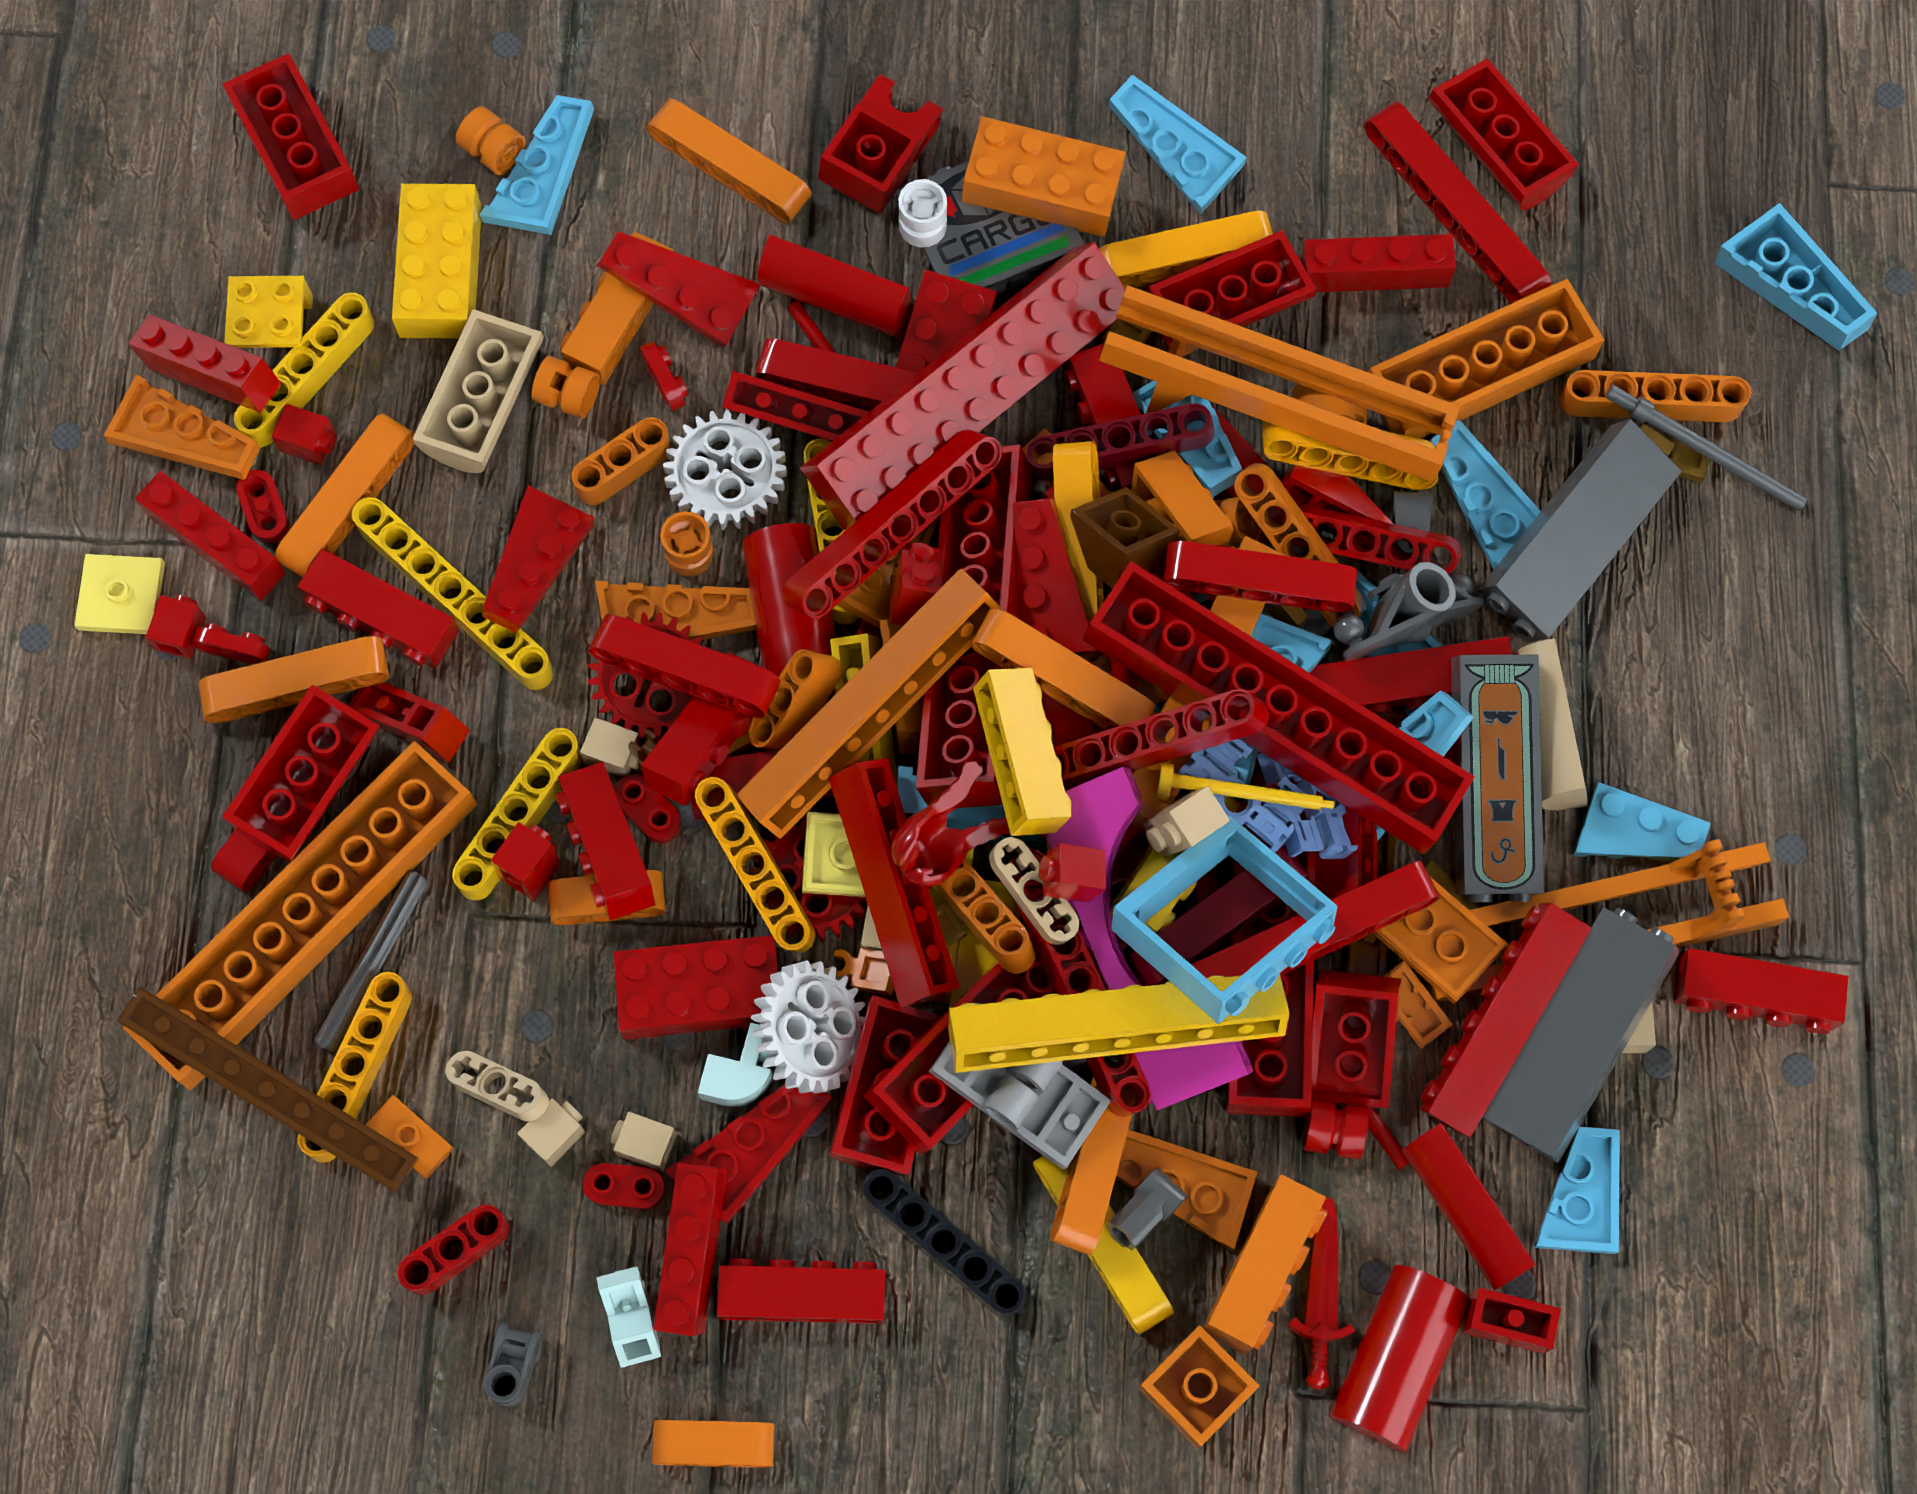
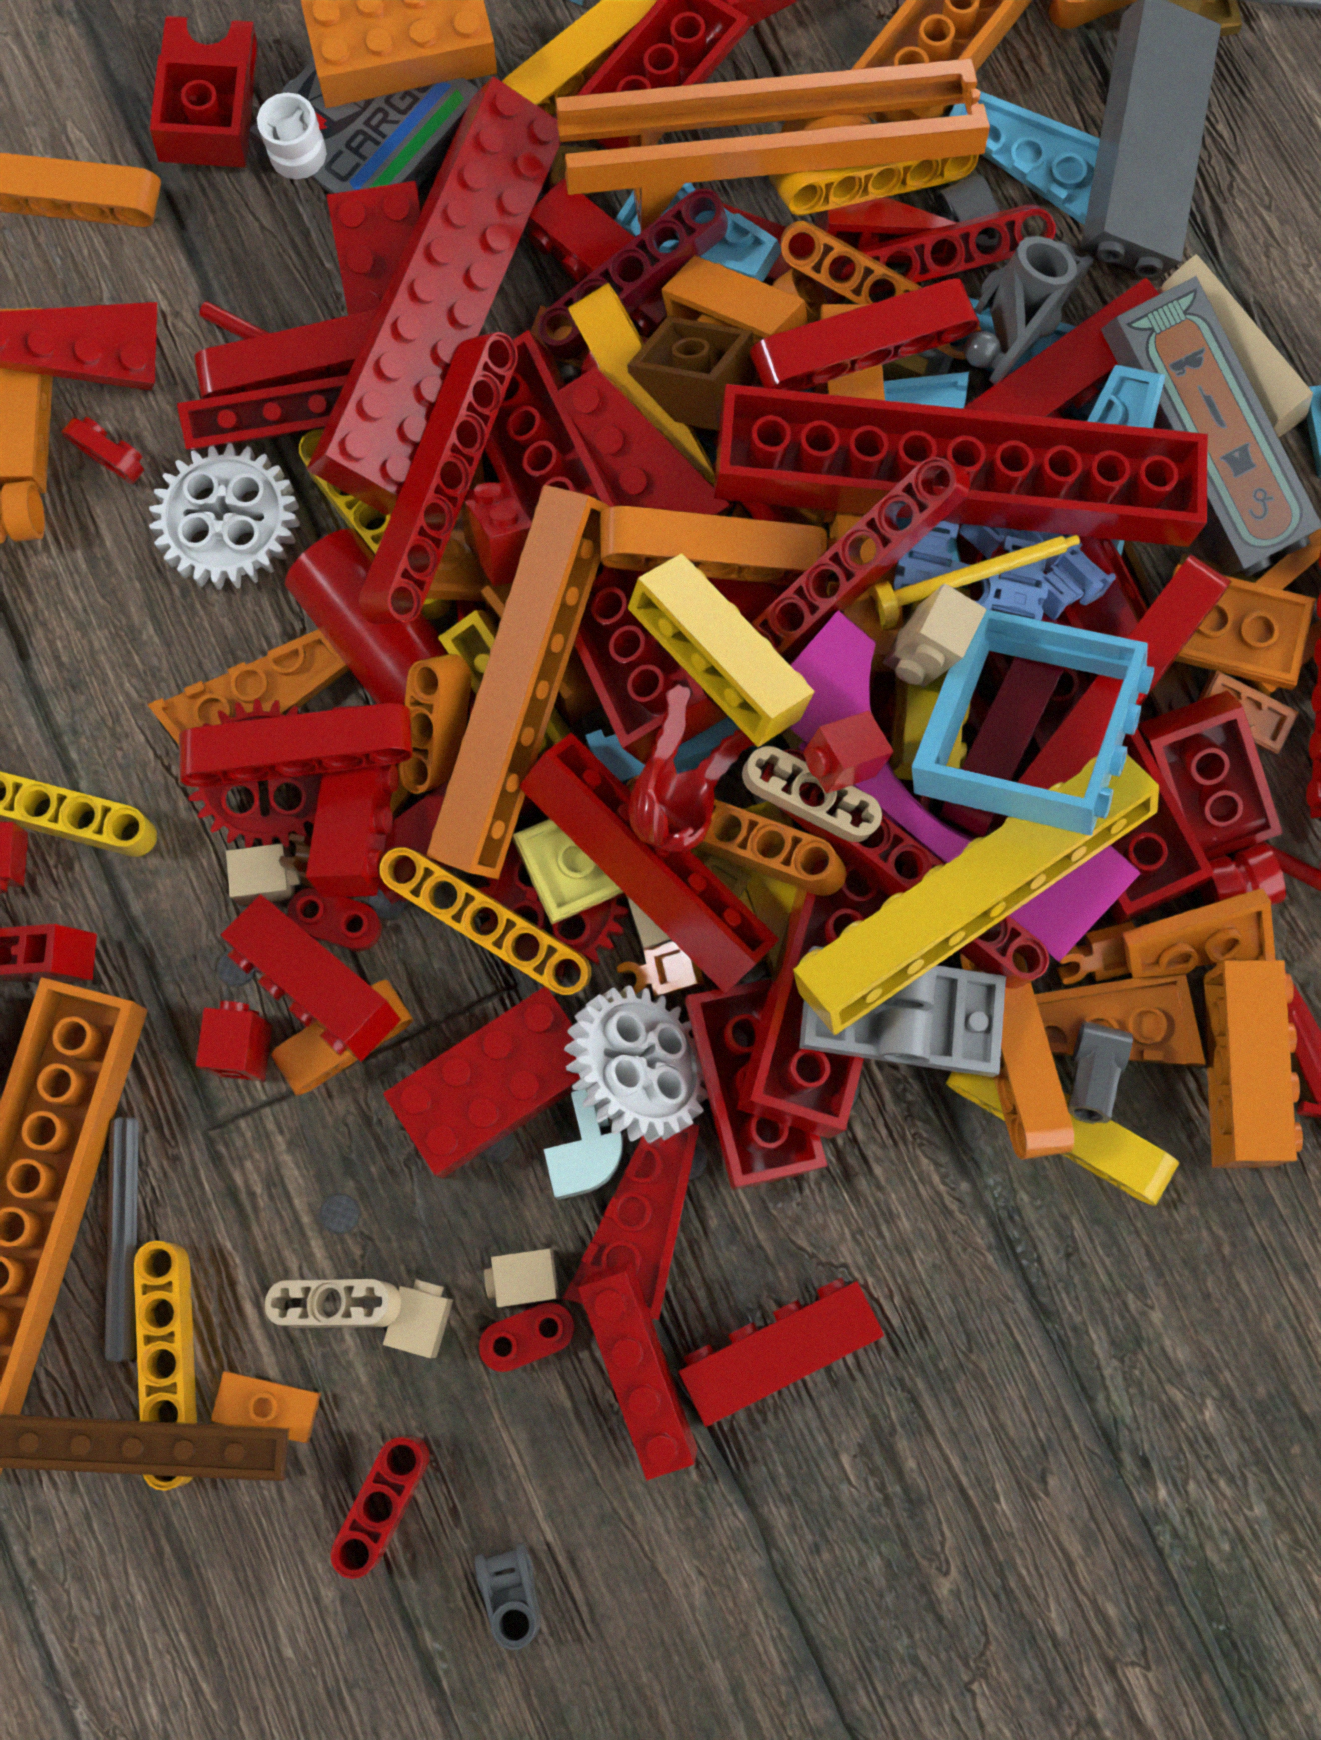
camera: 20 degrees left, 5 degrees up
(518, 795) = (186, 977): yellow beam -> none
(534, 556) = (66, 709): red wing -> none
(614, 477) = (105, 542): orange beam -> none
(629, 1316) = (611, 1477): light aqua brick -> none
(687, 544) = (226, 614): orange wheel -> none
(713, 1443) = (772, 1564): orange beam -> none
(835, 286) = (237, 261): red brick -> none
(934, 1224) = (924, 1212): black beam -> none
(1198, 1387) = (1250, 1229): orange brick -> none
(1206, 1129) = (1101, 956): none -> orange plate
(1279, 1150) = (1203, 936): none -> orange wing

